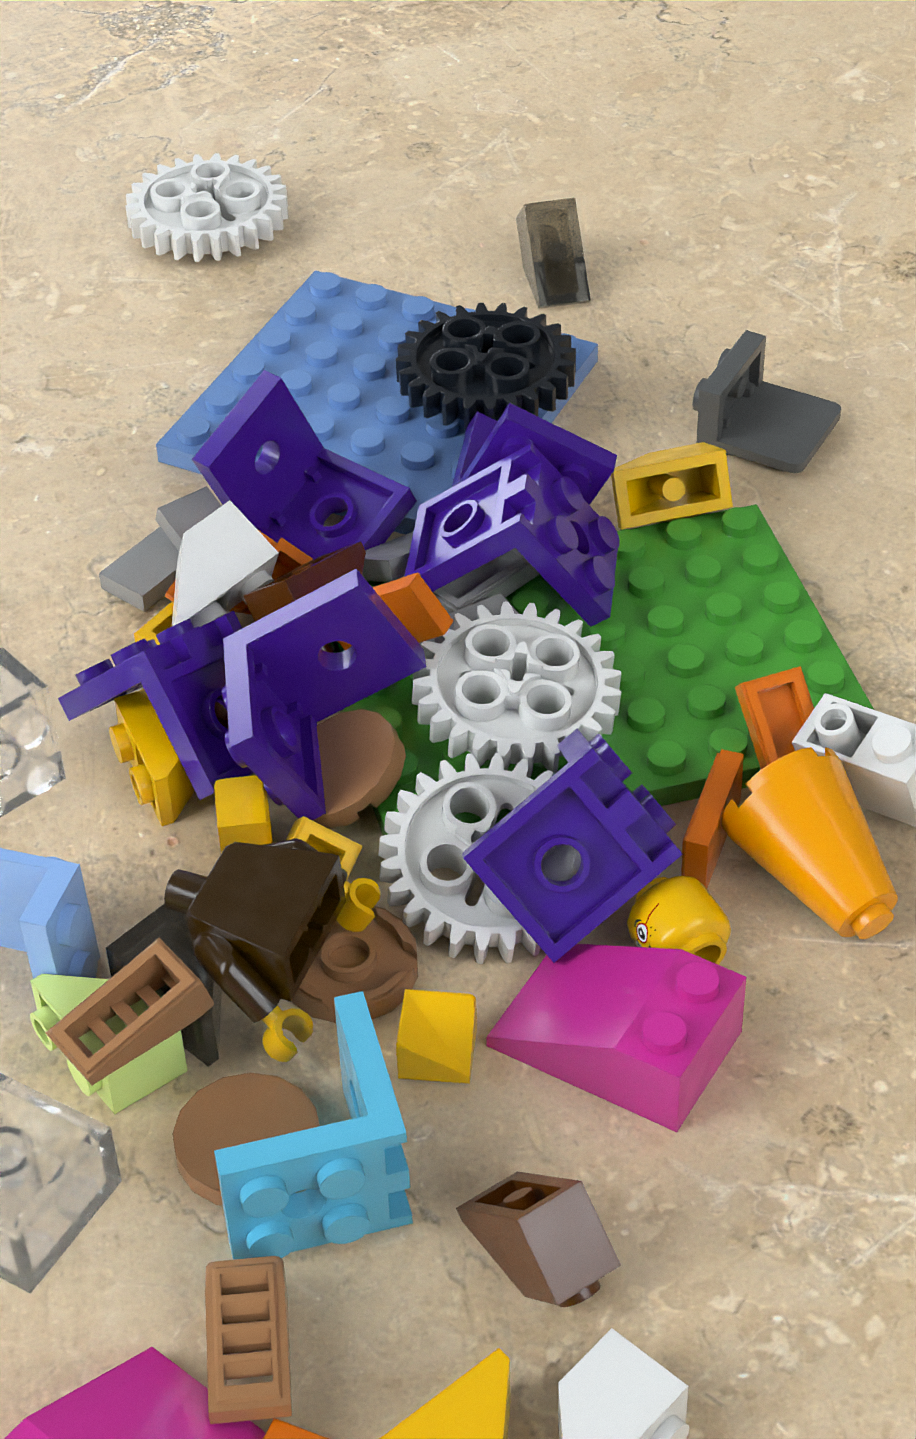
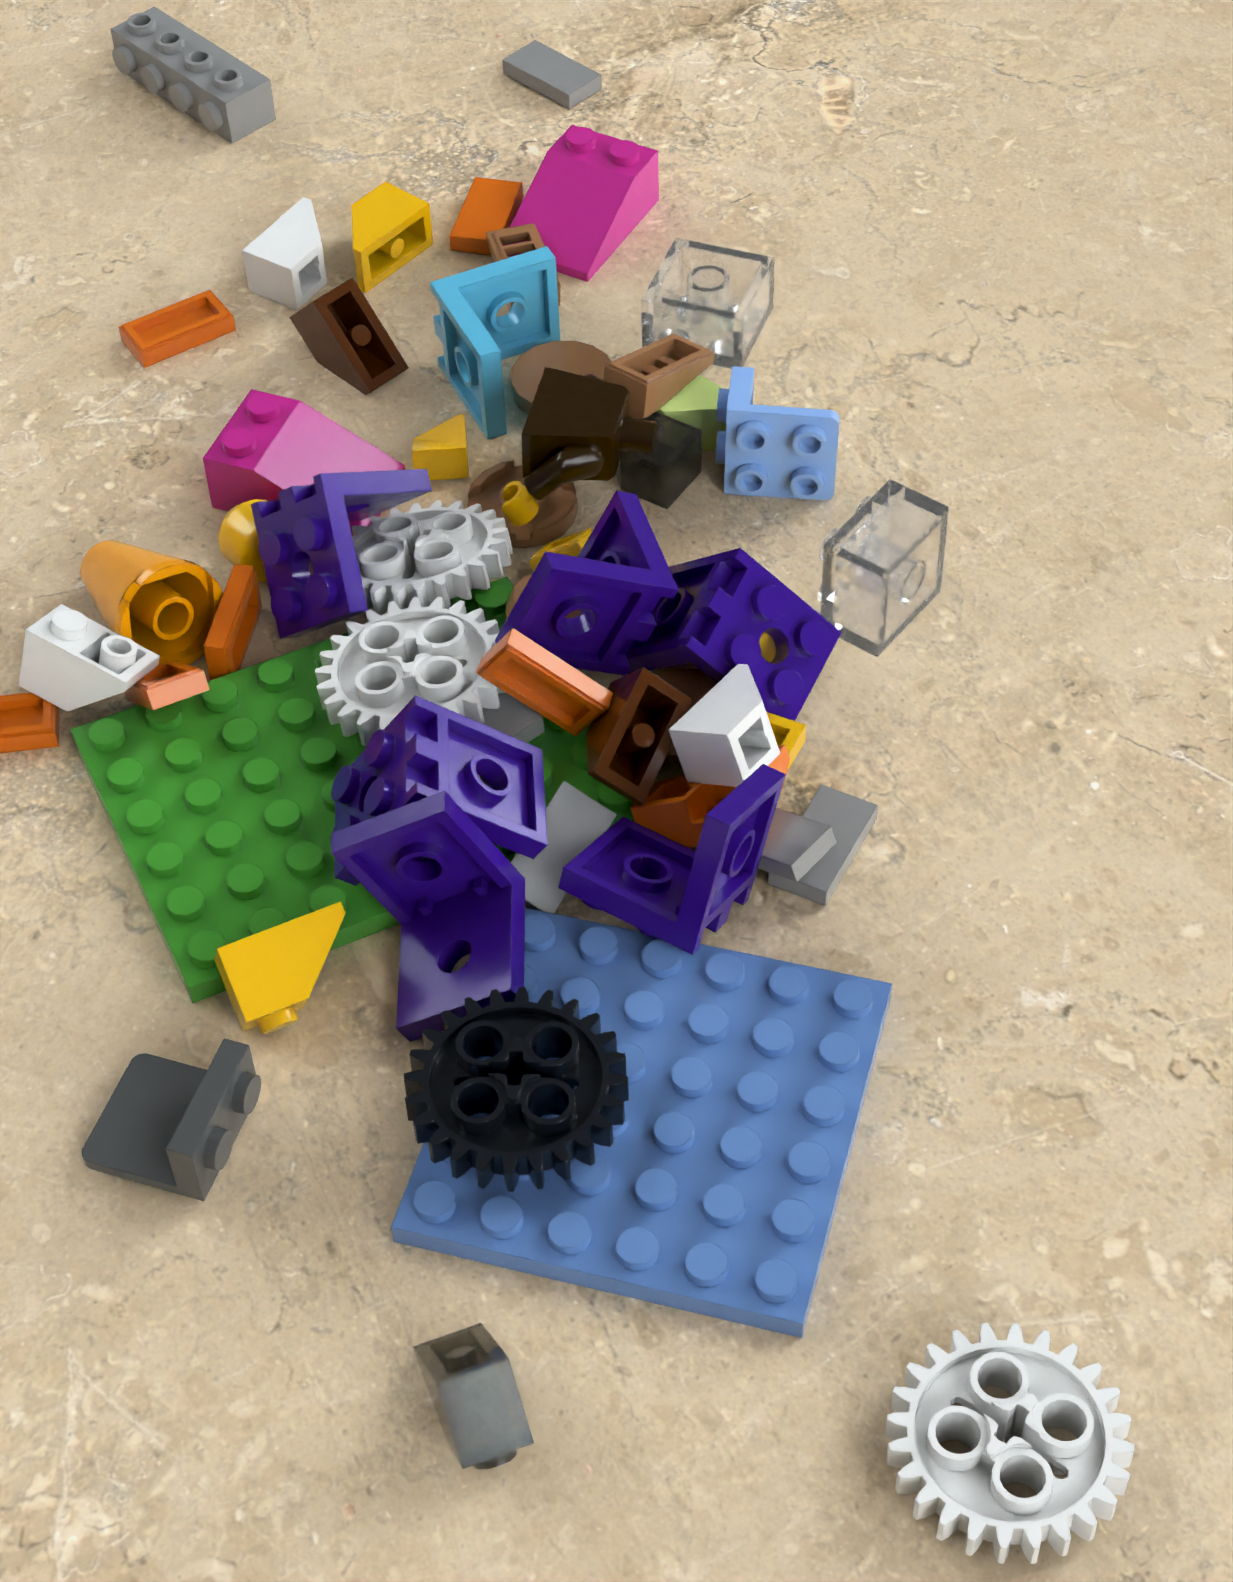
camera: 170 degrees right, 5 degrees up
(797, 1342) = (177, 328): none -> orange tile

